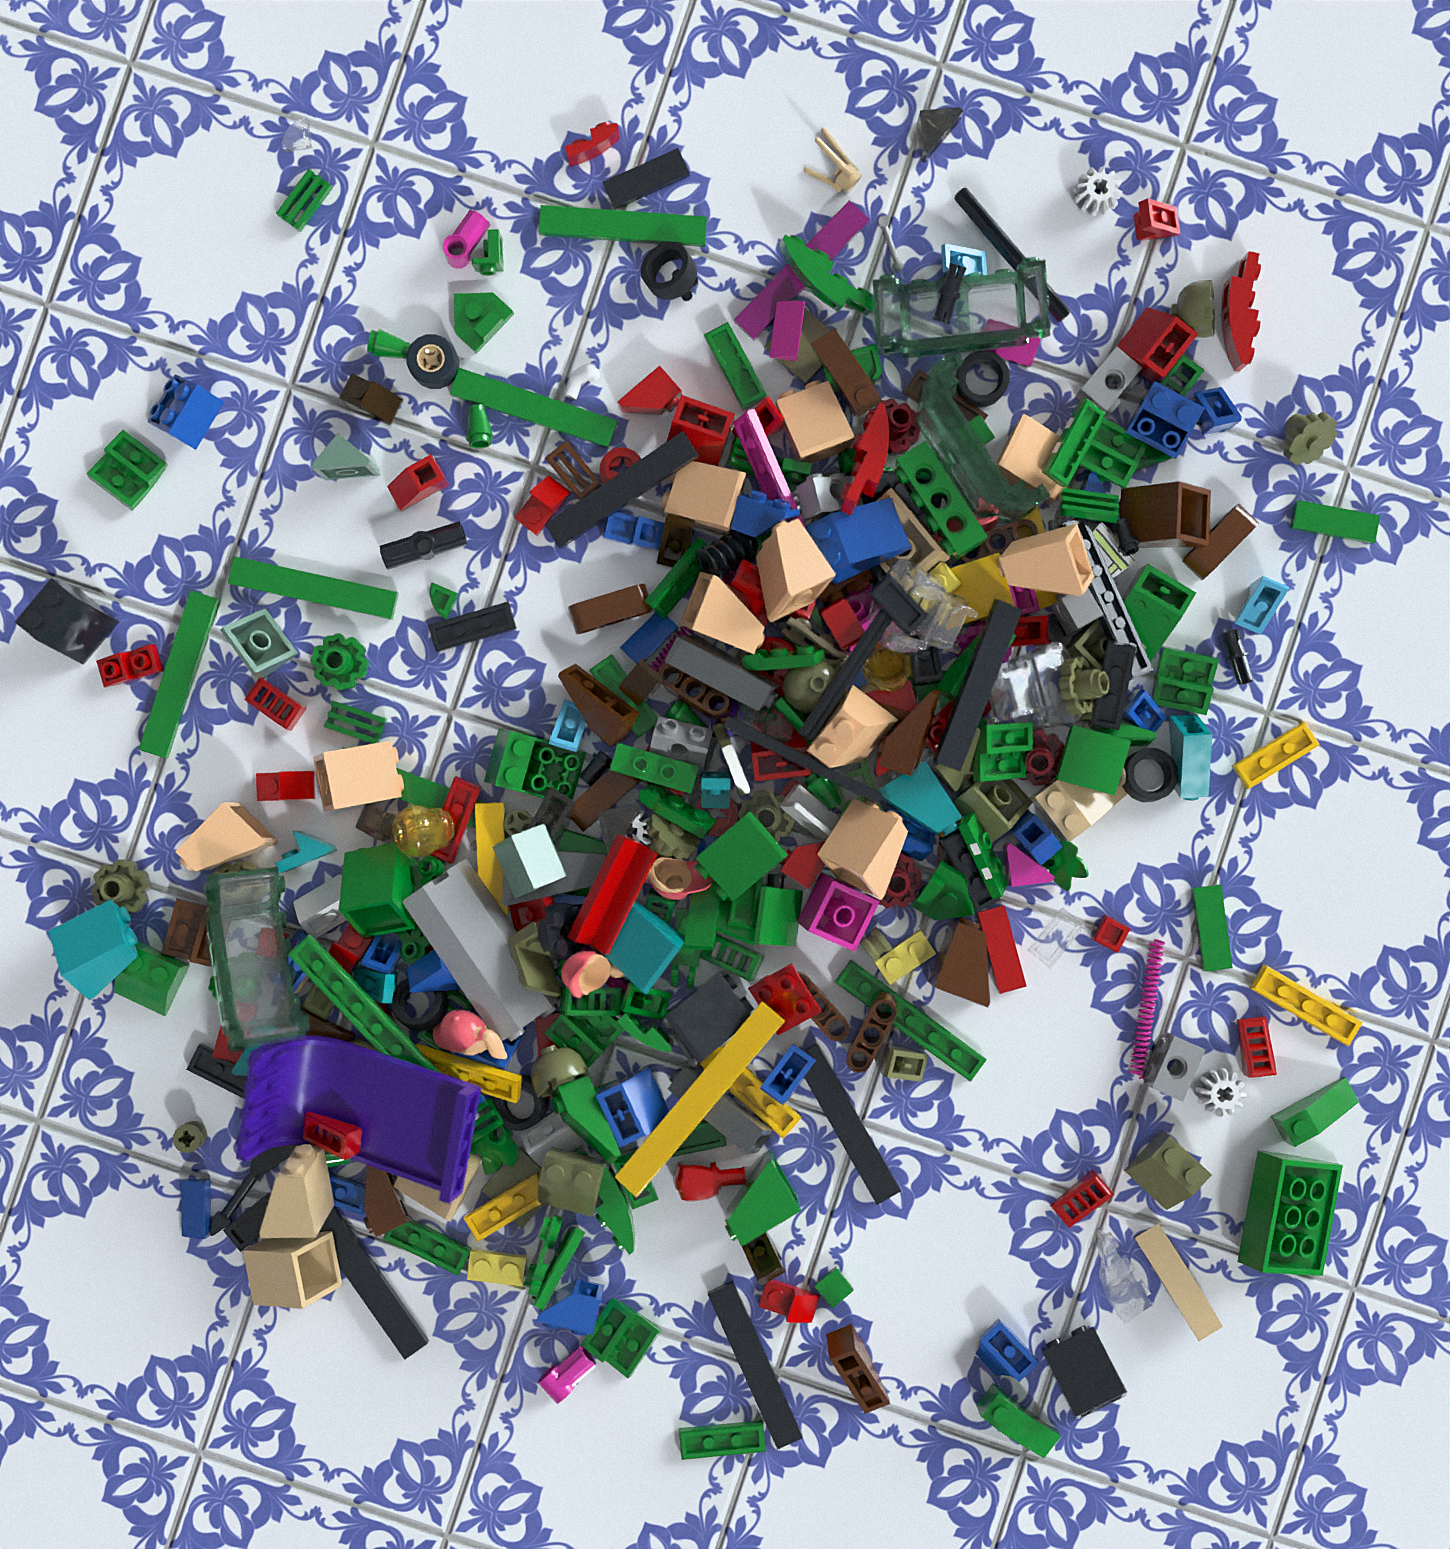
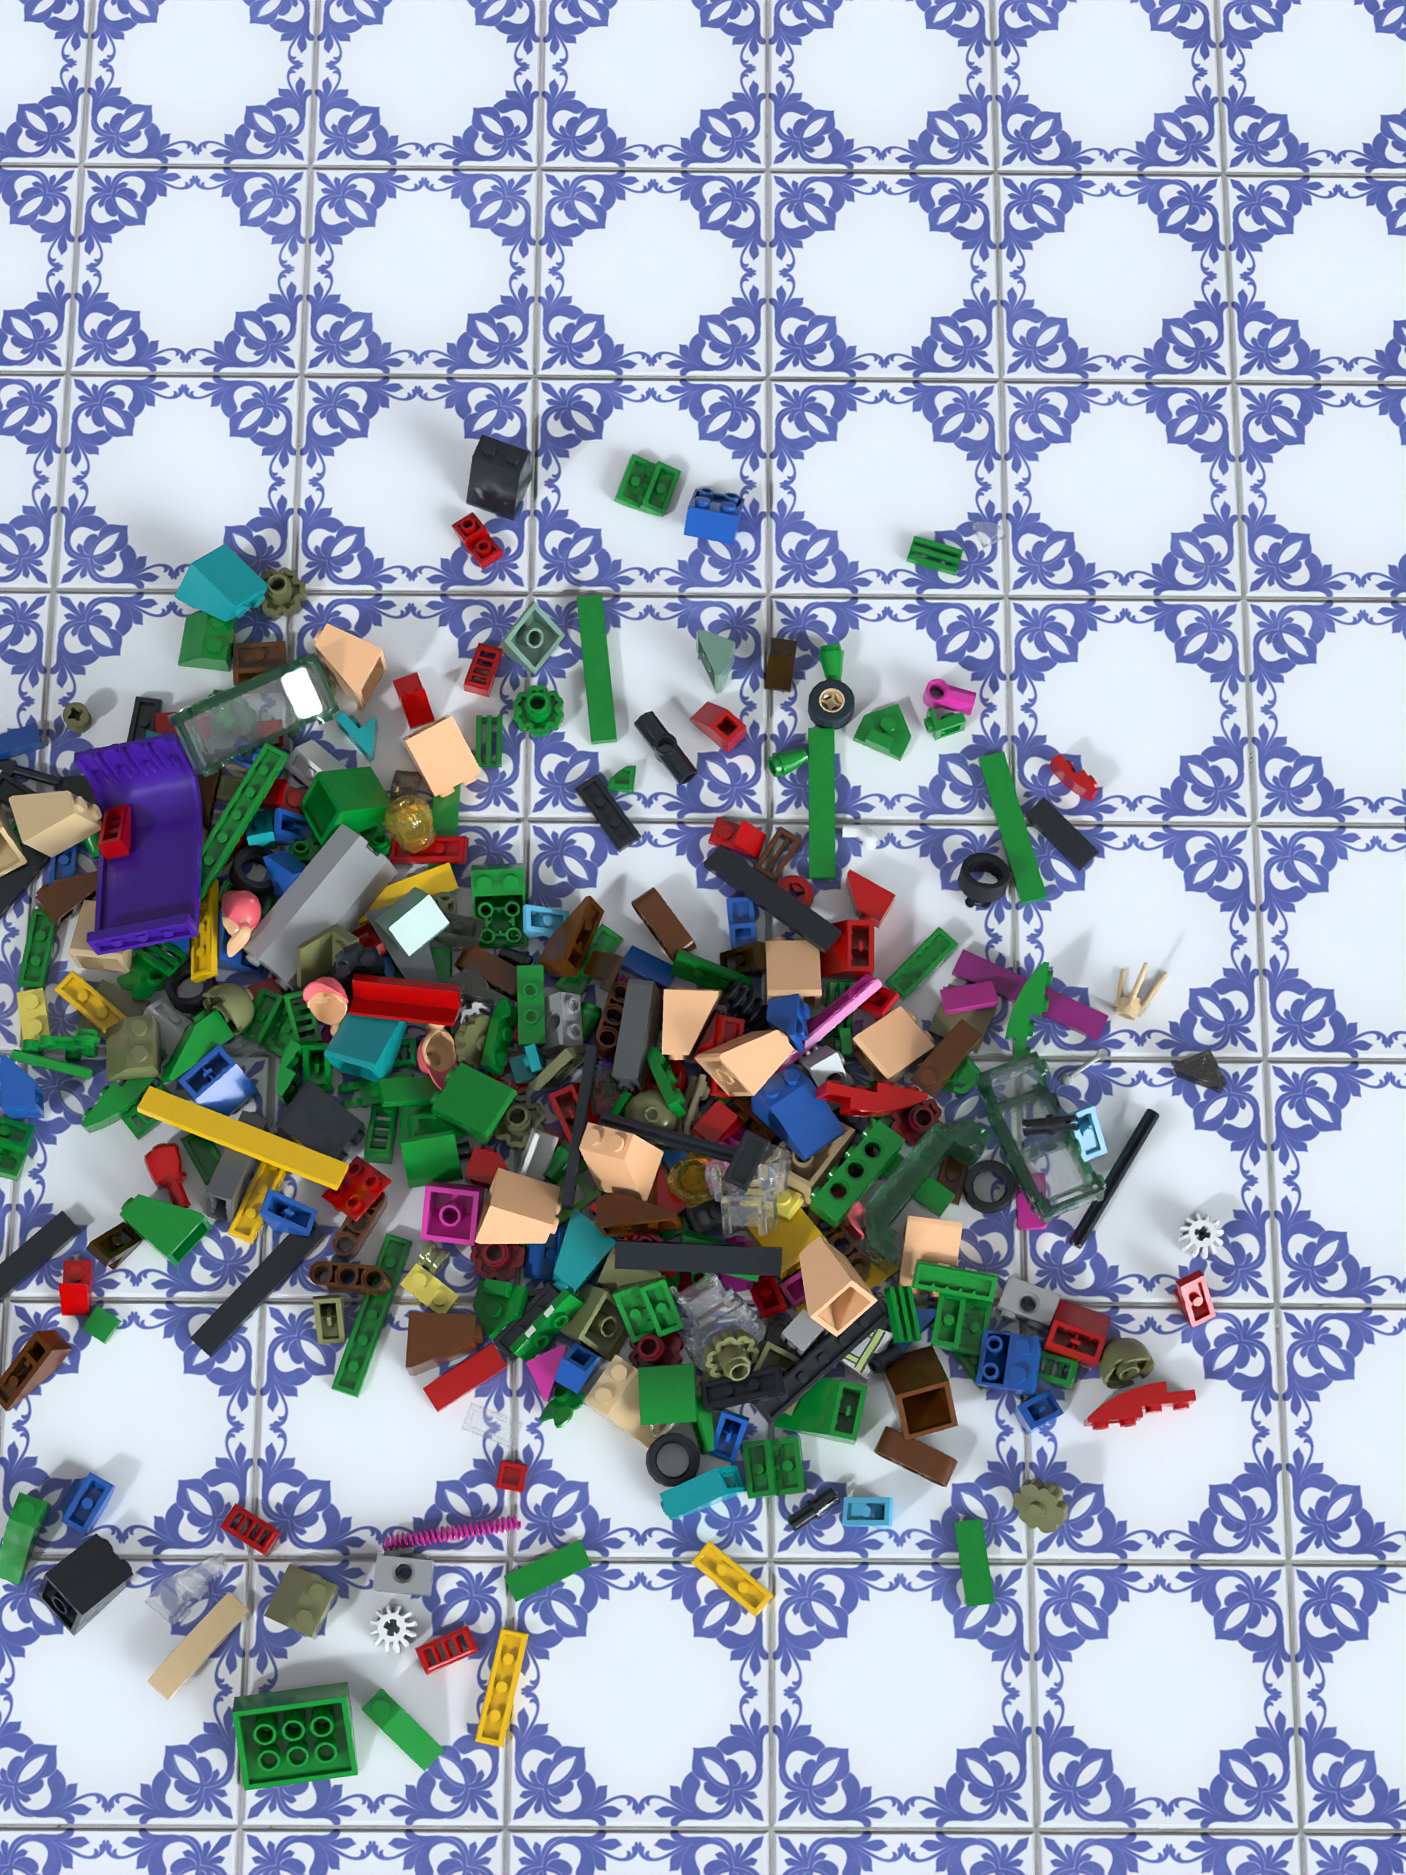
camera: 70 degrees right, 15 degrees down
(179, 674) = (483, 582): green tile -> none

